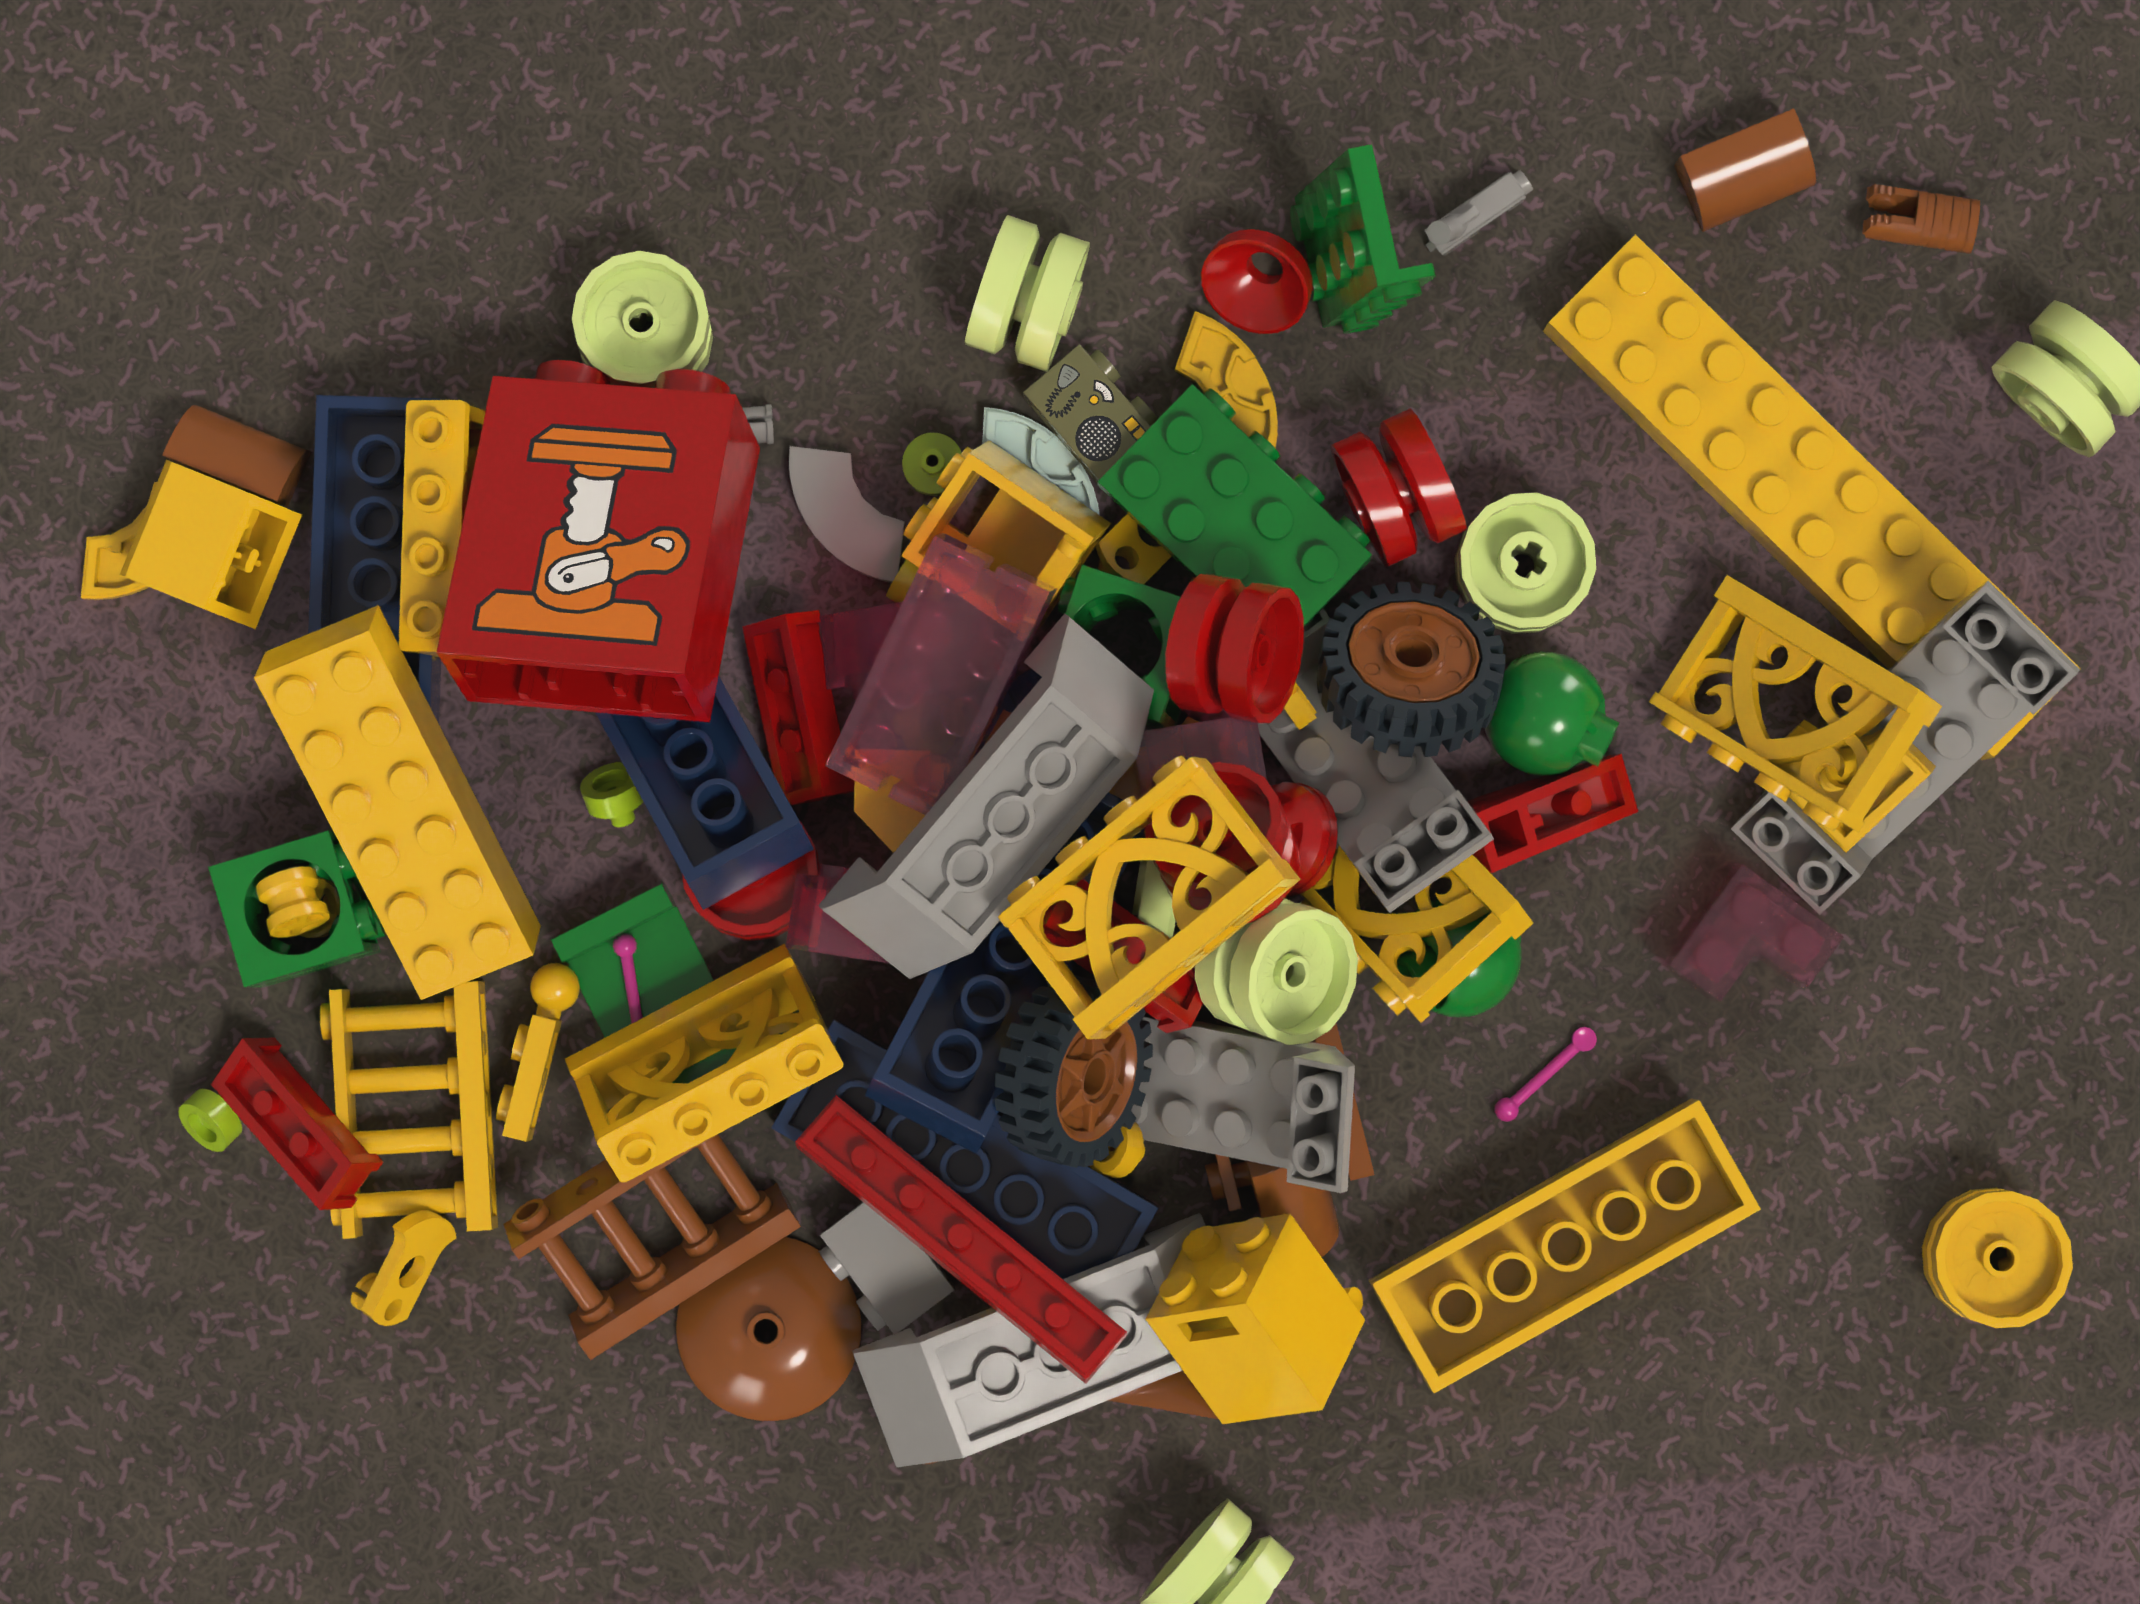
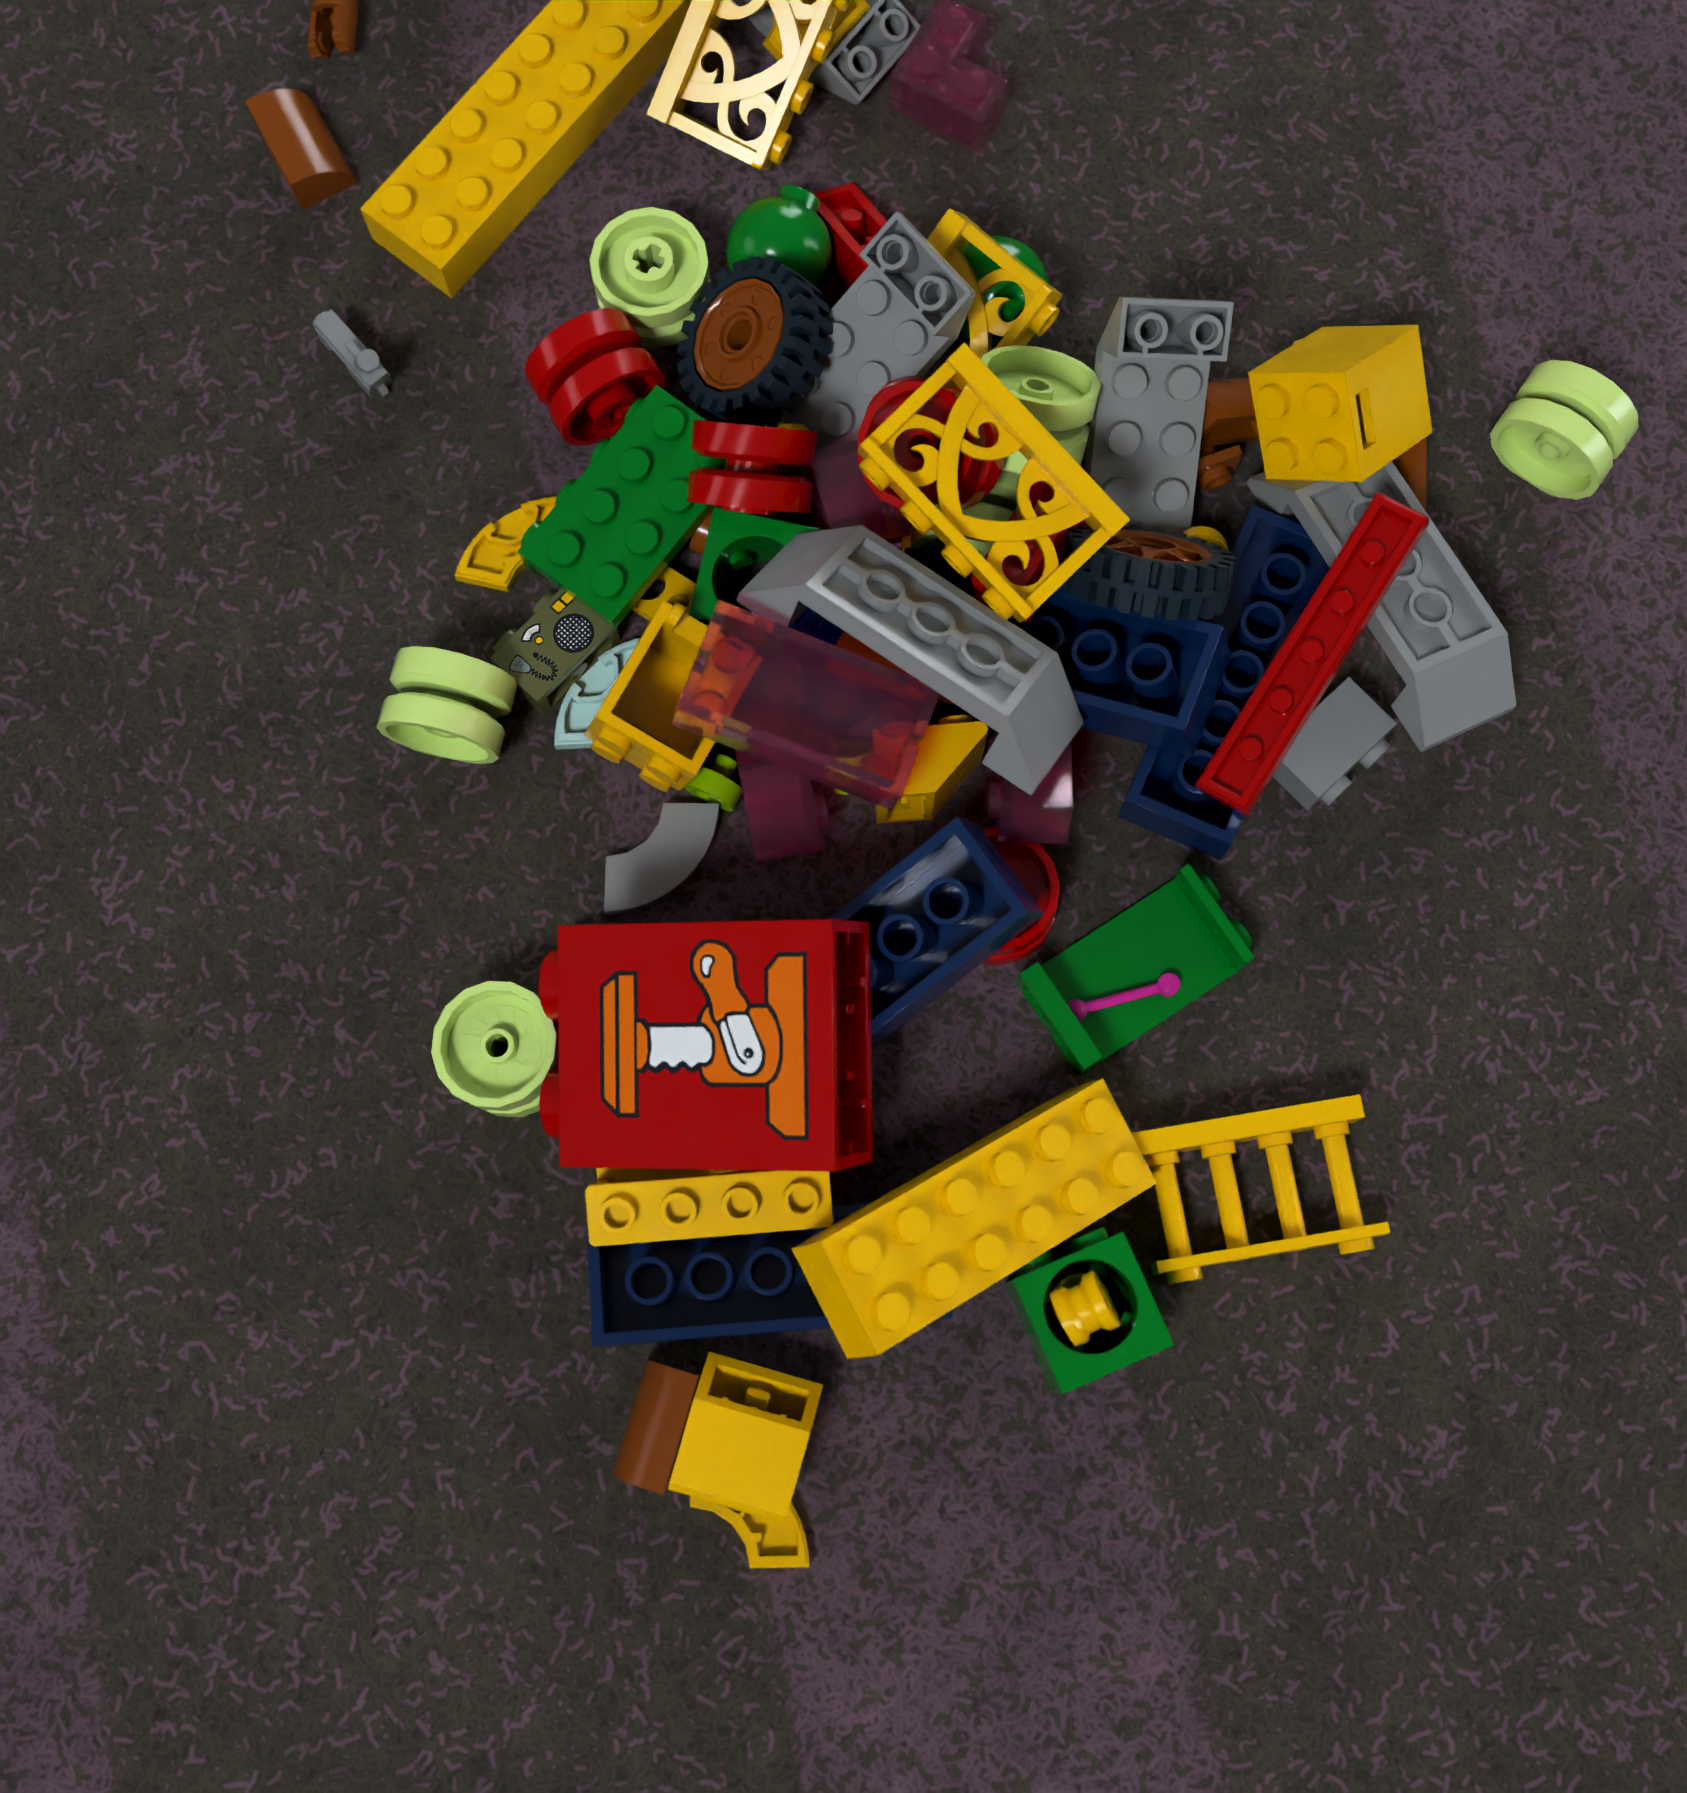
camera: 100 degrees left, 10 degrees down
(210, 1120) = (1290, 1376): lime tile -> none
(294, 1124) = (1290, 1290): red container -> none
(388, 1297) = (1434, 1190): yellow piece -> none
(553, 990) = (1181, 1079): yellow plate -> none
(611, 794) = (937, 1034): lime tile -> none
(640, 1062) = (1134, 918): yellow fence -> none
(654, 1282) = (1366, 924): dark orange fence -> none
(796, 705) = (833, 877): red container -> none
(814, 1340) = (1382, 876): dark orange dish -> none
(919, 452) = (613, 796): lime tile -> none
(1247, 295) = (442, 517): red piece -> none
(1352, 245) = (378, 414): green bracket -> none
(1564, 1244) = (1229, 190): yellow brick -> none
(1582, 1040) = (1050, 208): dark pink hinge -> none

